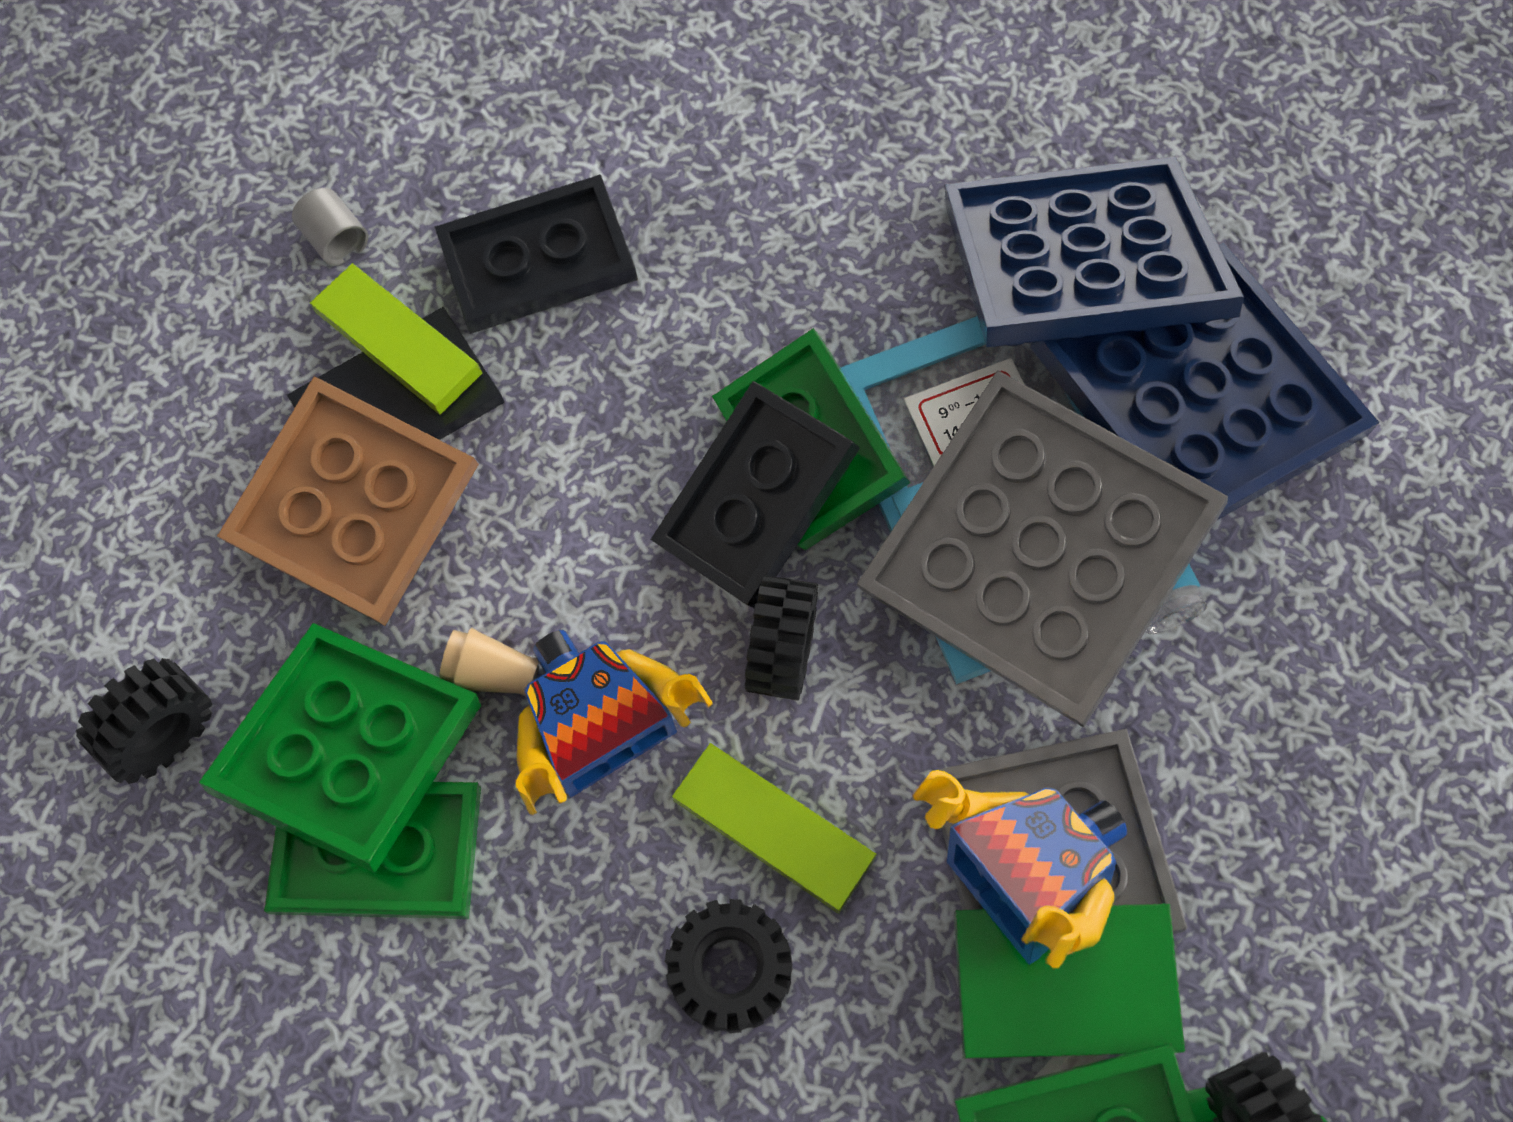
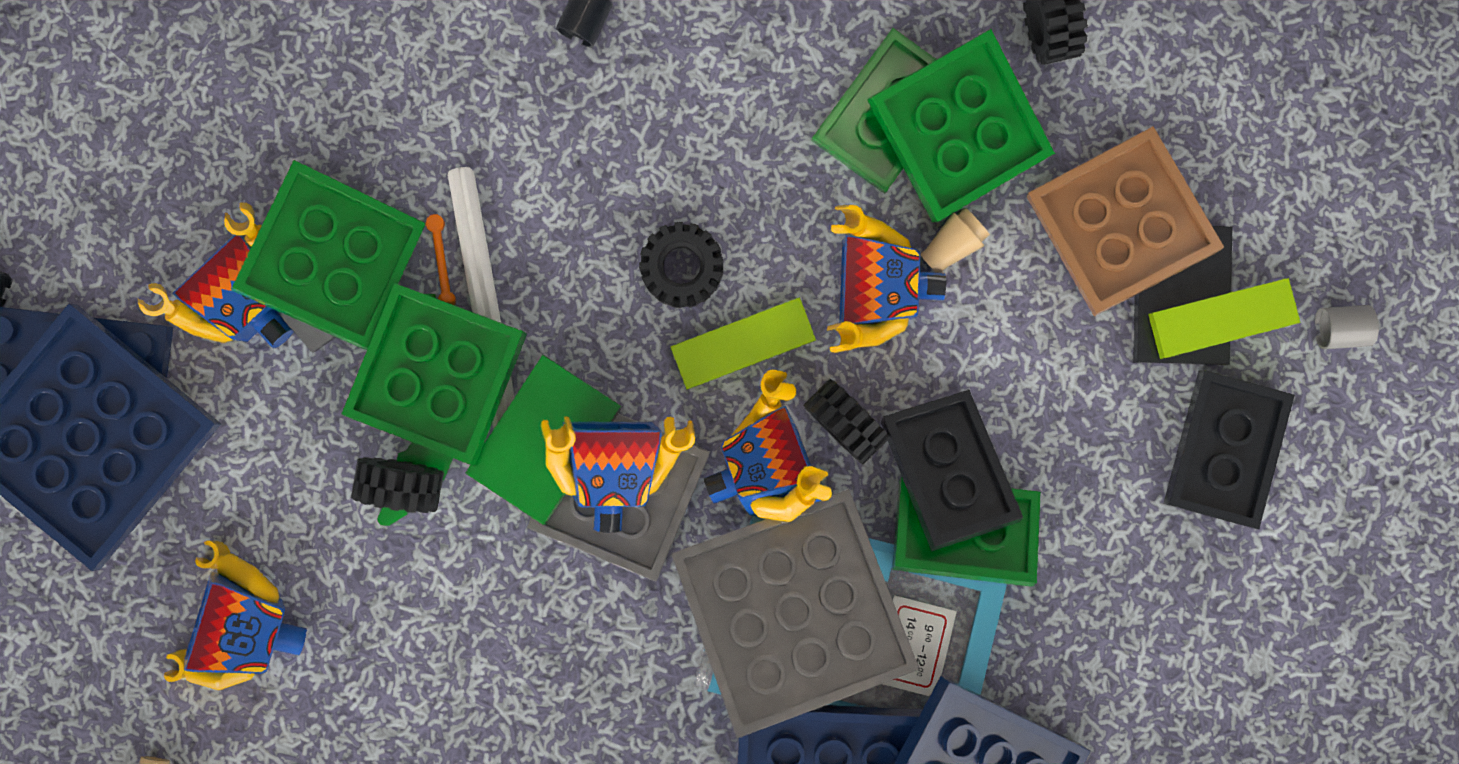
camera: 115 degrees right, 20 degrees up
(890, 689) = (769, 460): none -> torso

